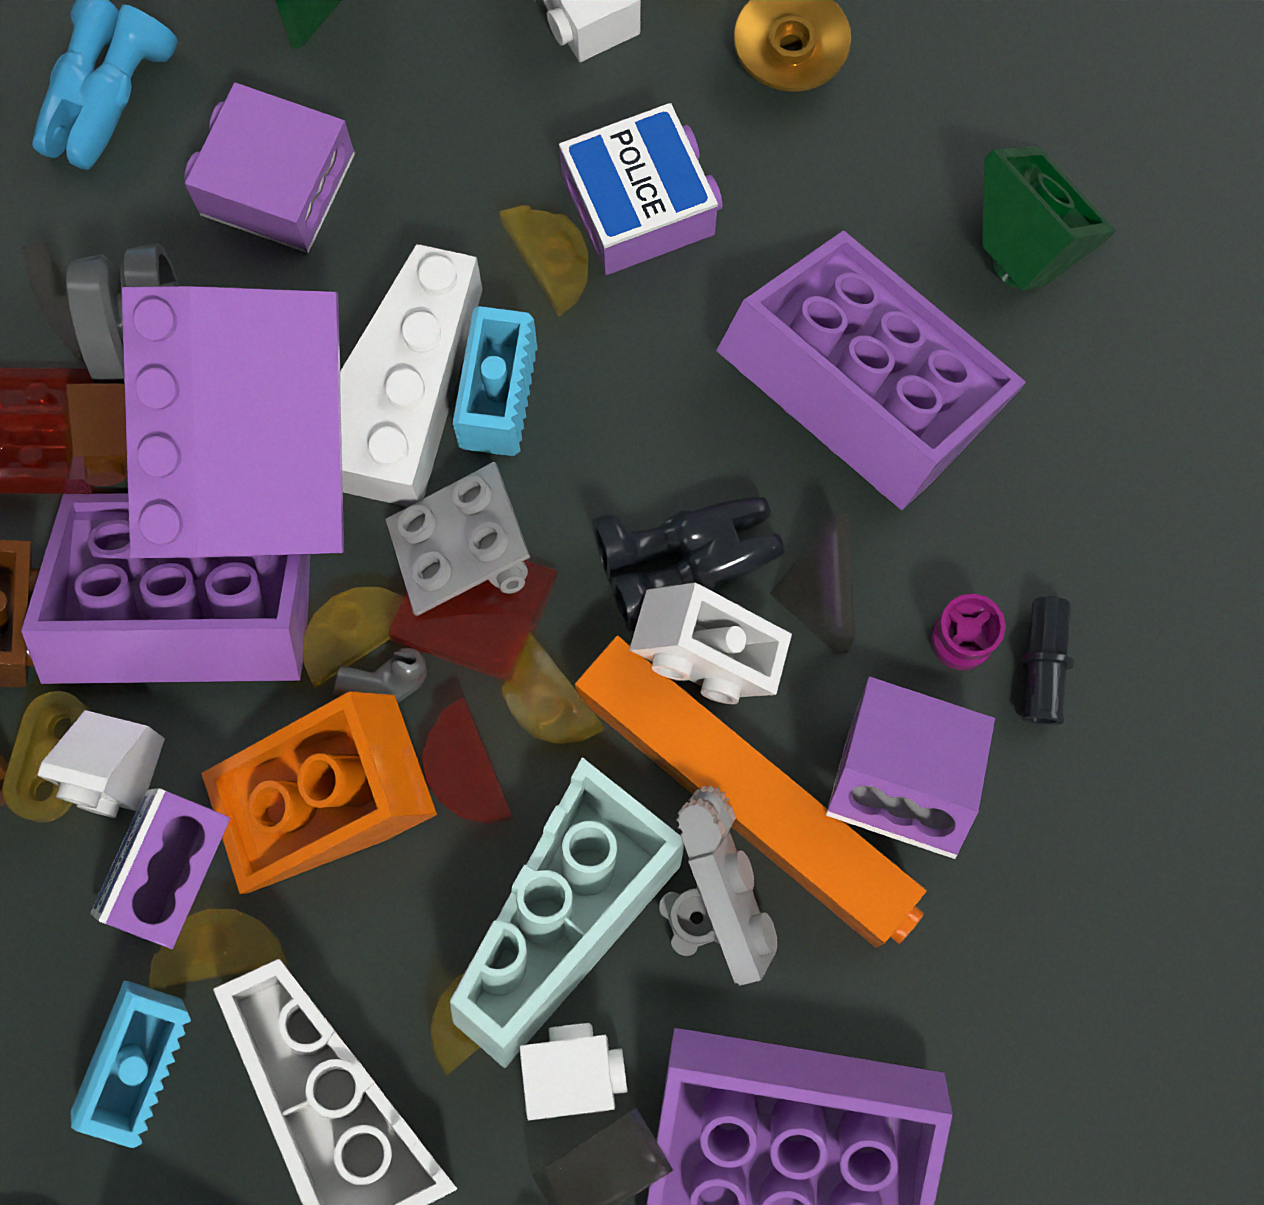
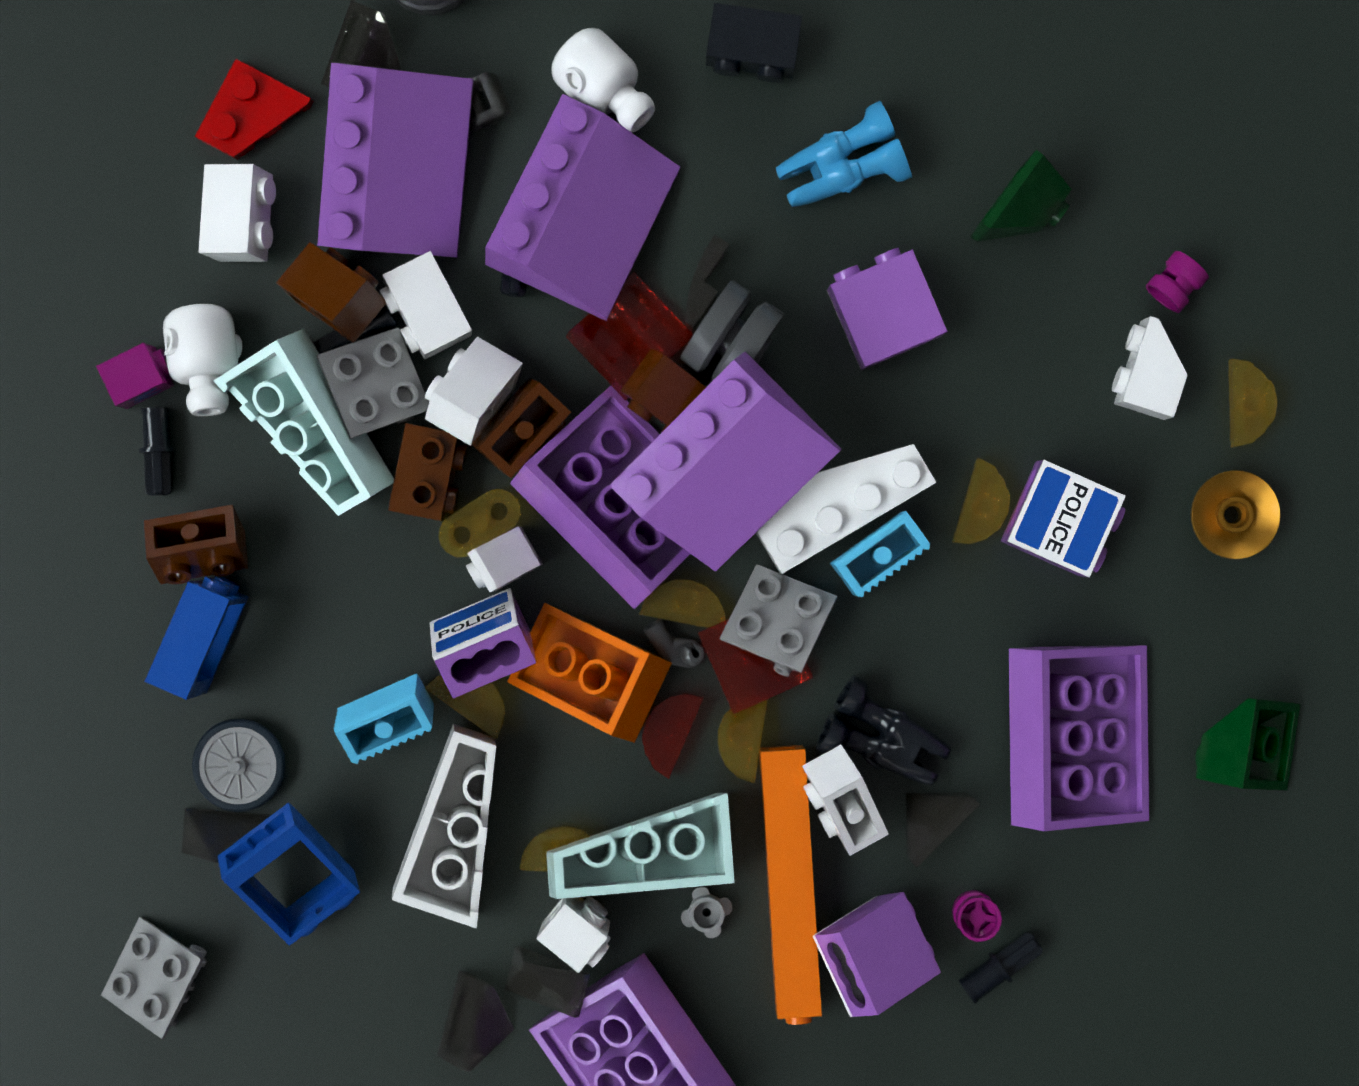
camera: 40 degrees right, 15 degrees up
(726, 885) = (733, 918): light grey hinge -> none

